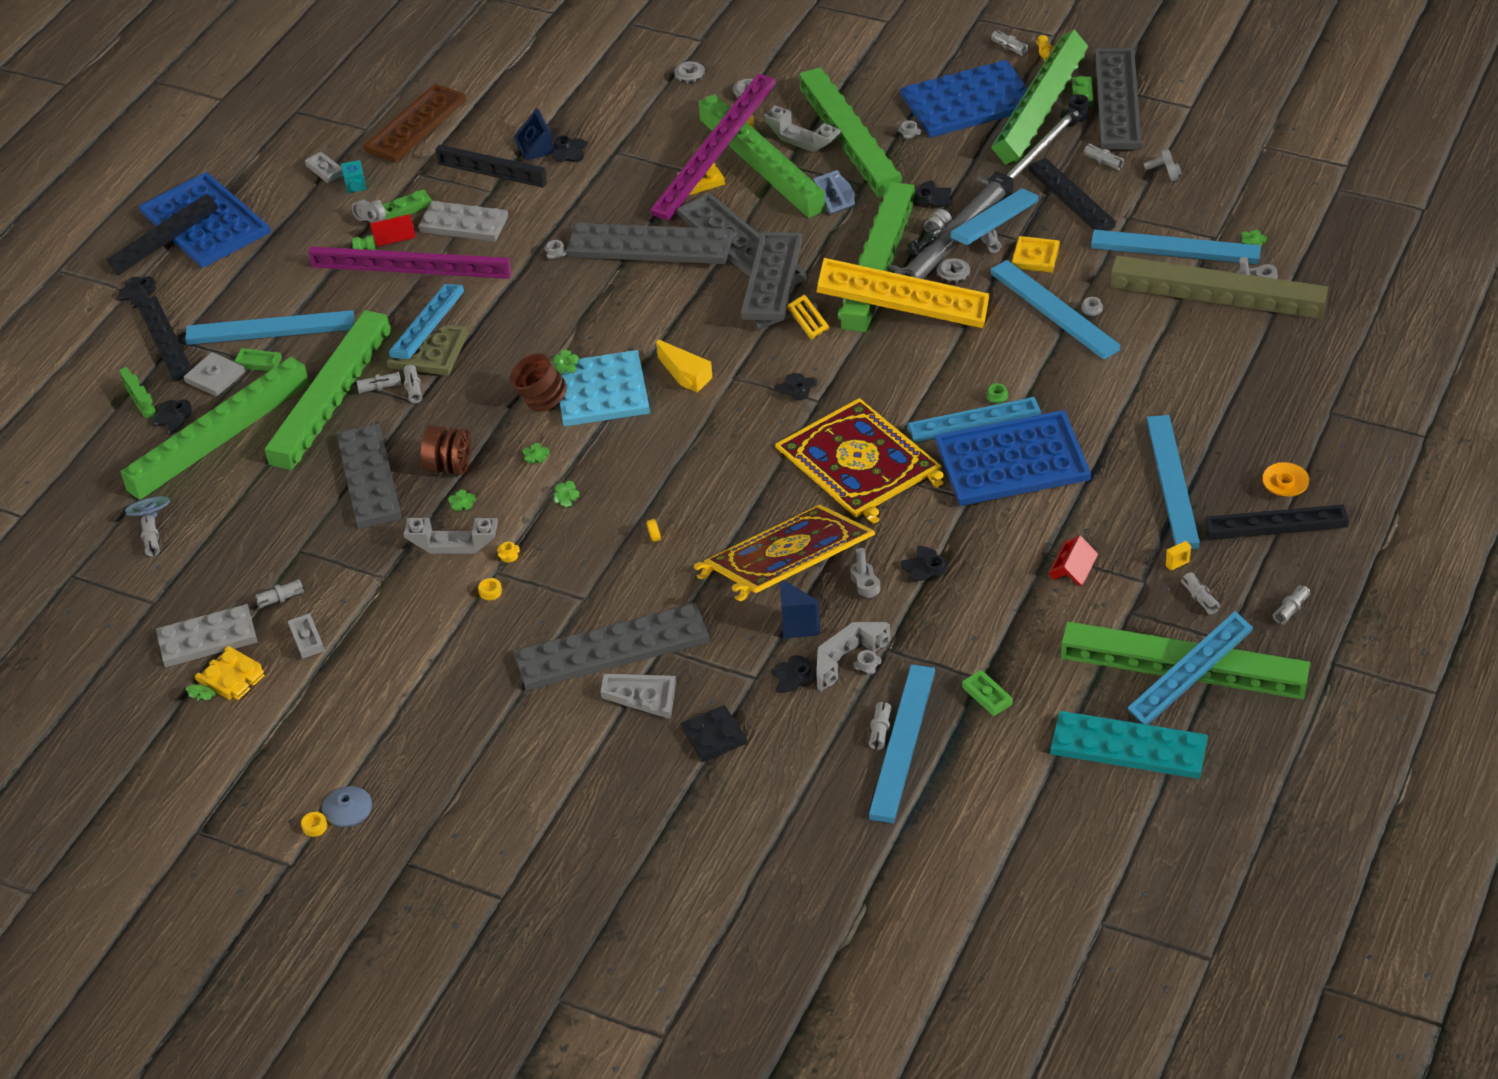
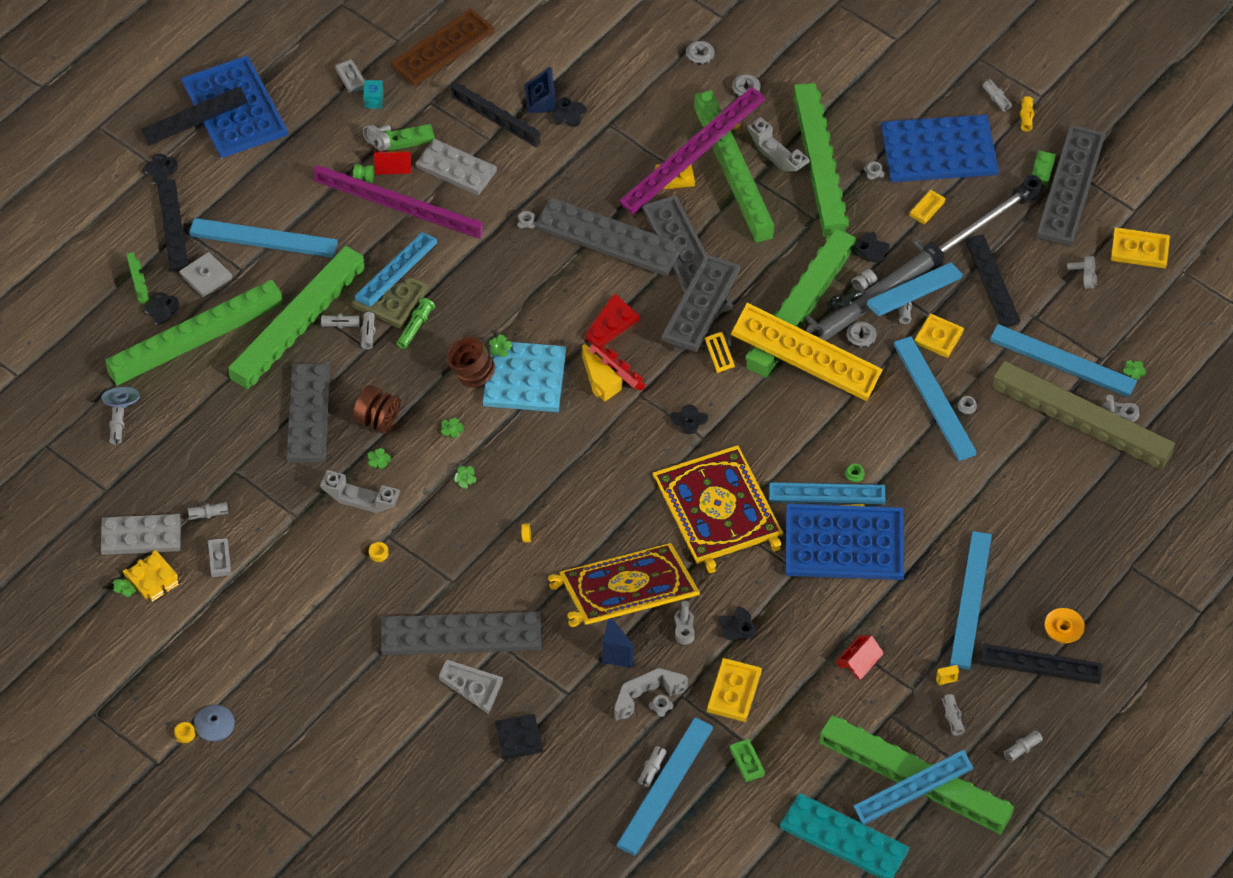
camera: 10 degrees right, 10 degrees up
(258, 359) = (245, 269): bright green tile -> none
(466, 359) = (419, 317): none -> bright green pin
(508, 552) = (403, 524): yellow plate -> none
(680, 318) = (611, 322): none -> red wing
(723, 361) = (610, 358): none -> red wing
(793, 673) = (597, 698): black plate -> none
(837, 192) = (787, 223): sand blue slope -> none
(945, 627) = (734, 690): none -> yellow plate
(977, 148) = (927, 207): none -> yellow tile
(1039, 97) = (1000, 167): bright green brick -> none
(1103, 156) = (1035, 246): light grey pin -> none
(1212, 134) = (1140, 248): none -> yellow plate

